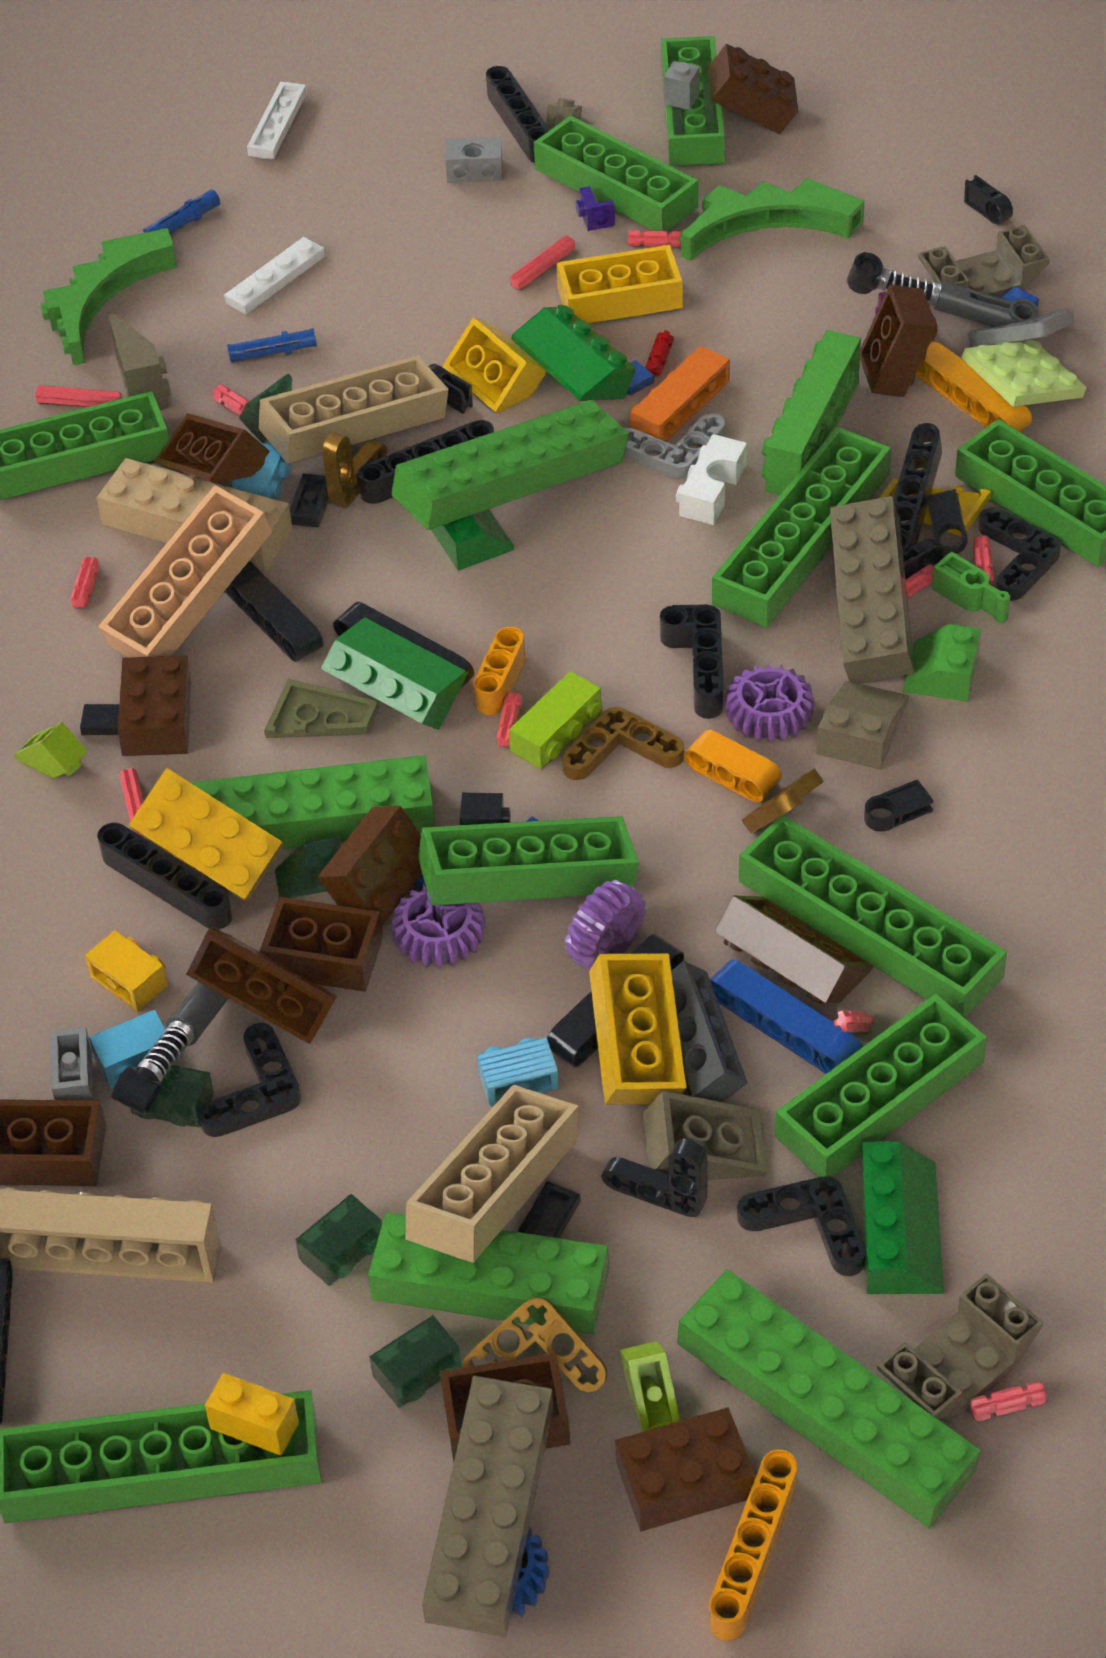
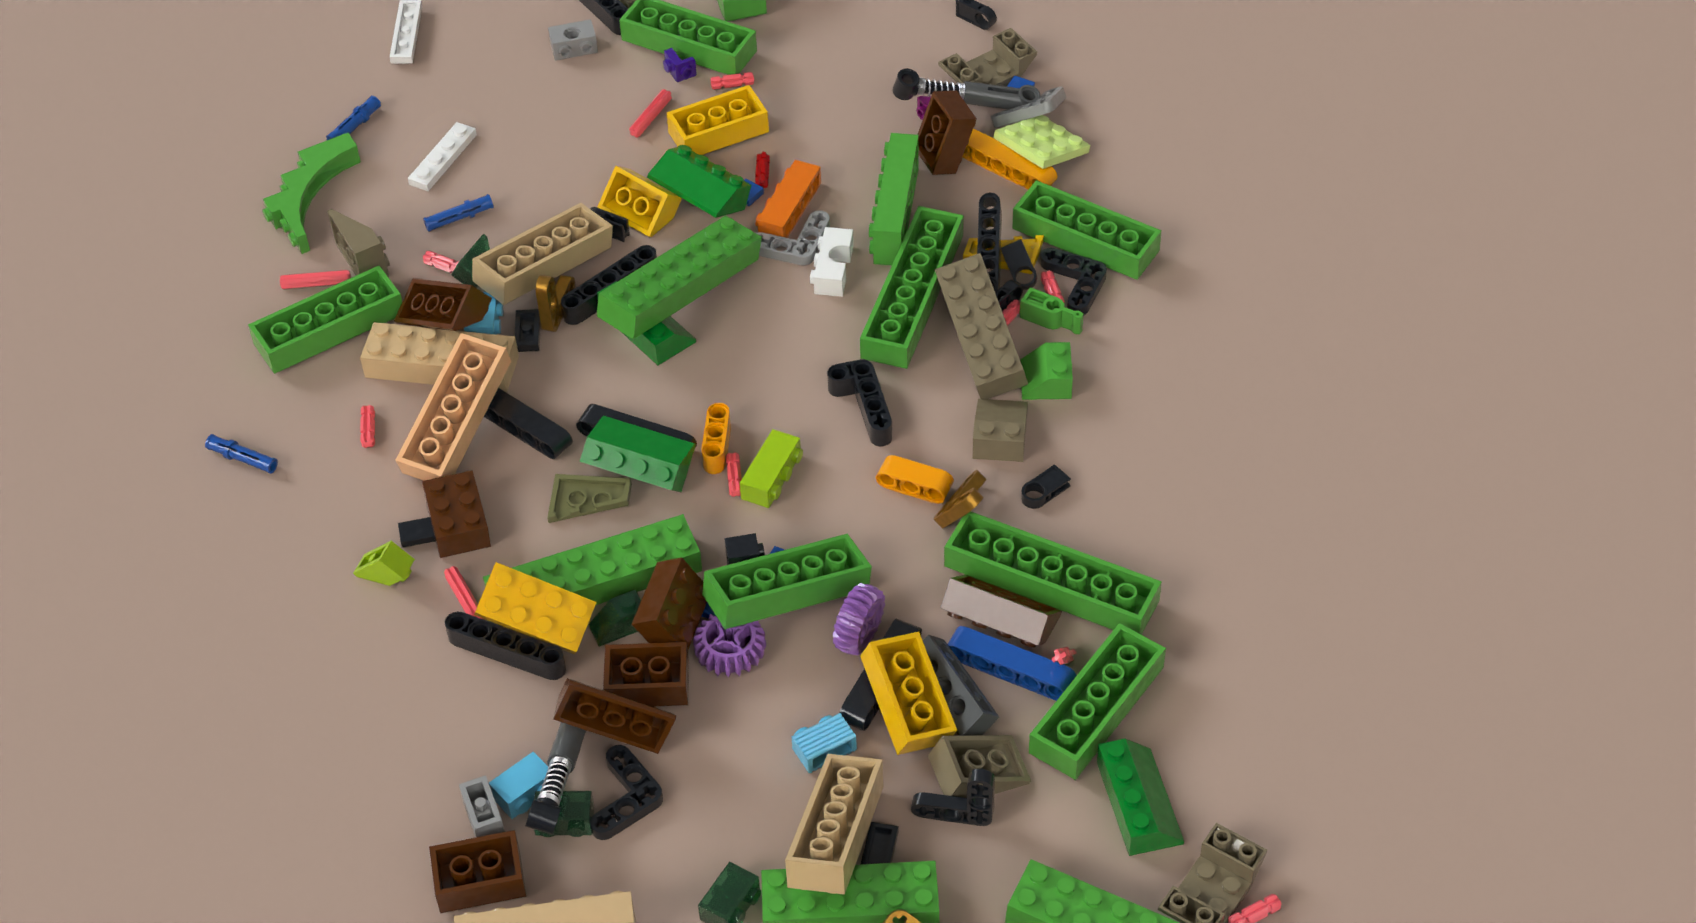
camera: 15 degrees left, 0 degrees up
(126, 970) = (498, 725): yellow brick -> none
(621, 734) = (824, 470): pearl gold beam -> none
(768, 206) = (812, 42): bright green arch -> none
(777, 699) = (927, 426): medium lavender gear -> none
(811, 1206) = (1070, 800): black beam -> none

